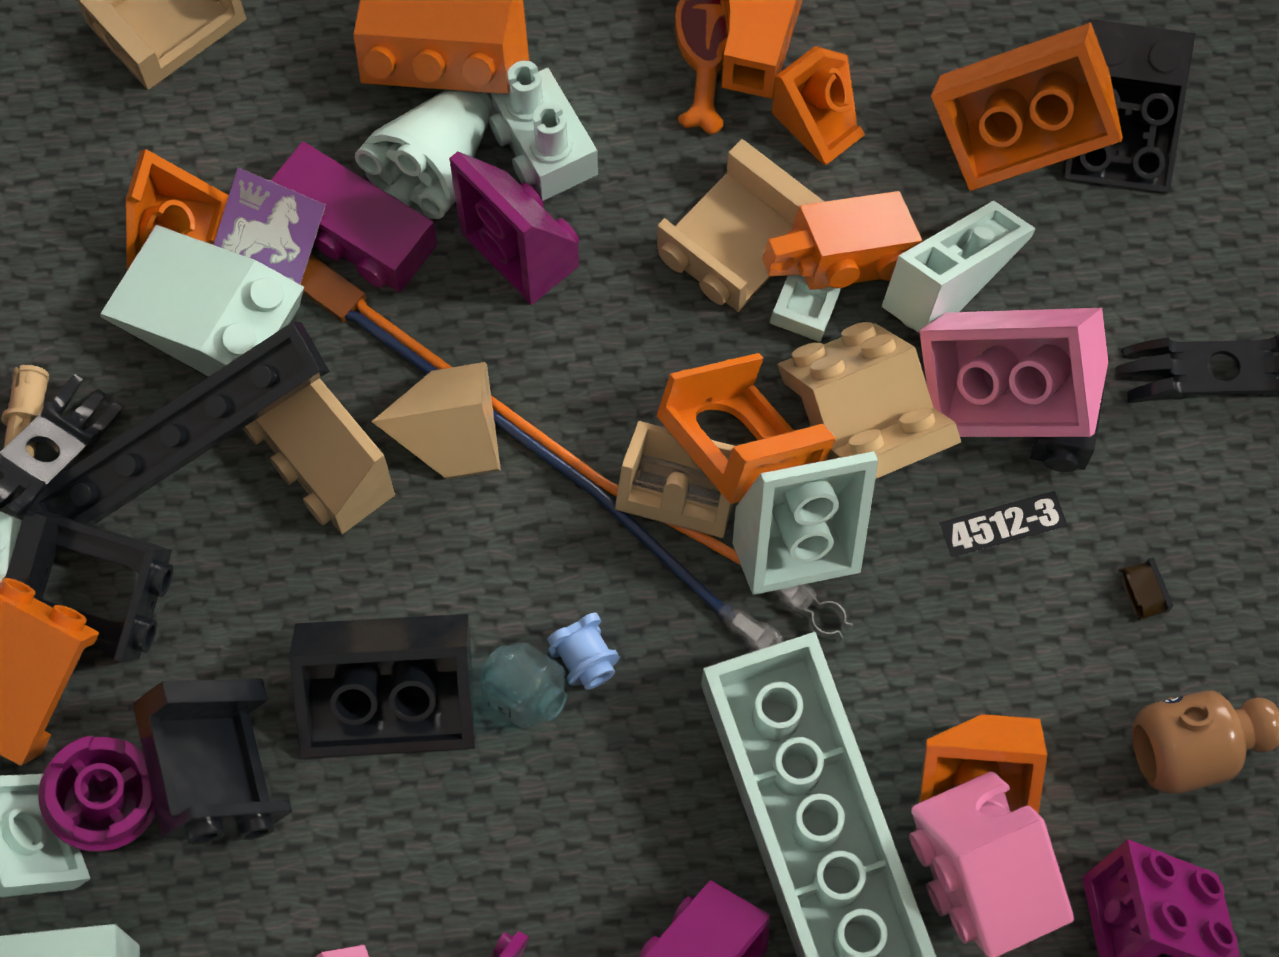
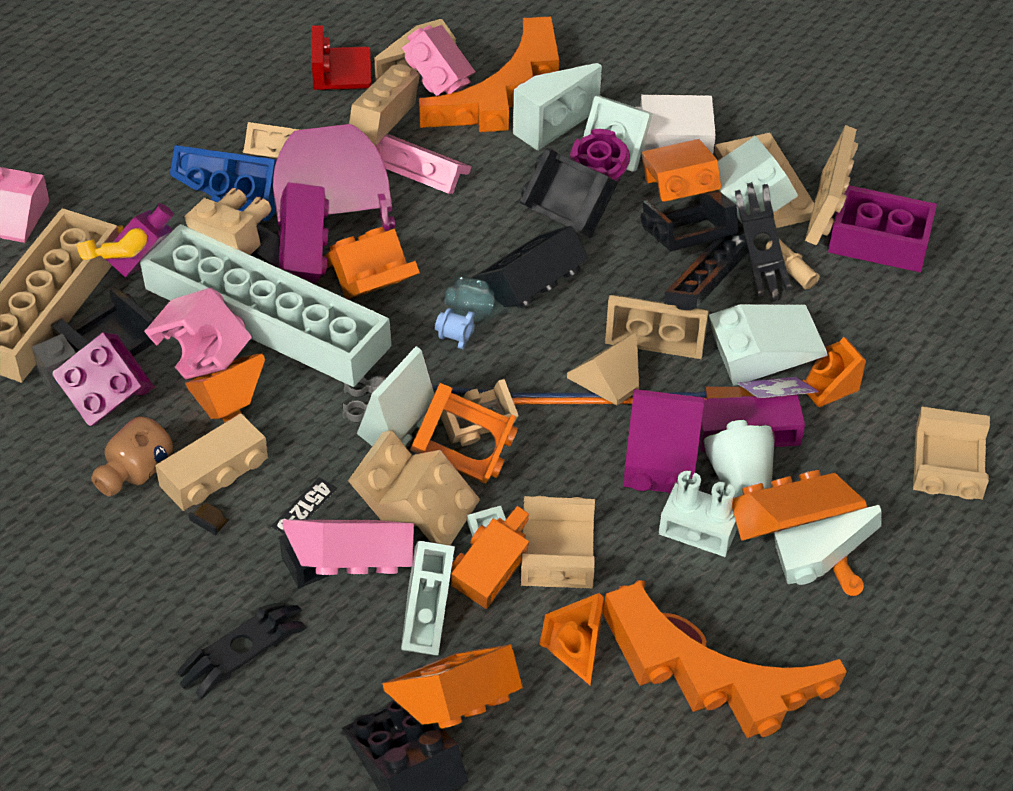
camera: 140 degrees right, 20 degrees down
(622, 842) = (370, 262): none -> orange bracket
(1092, 658) = (212, 462): none -> tan brick

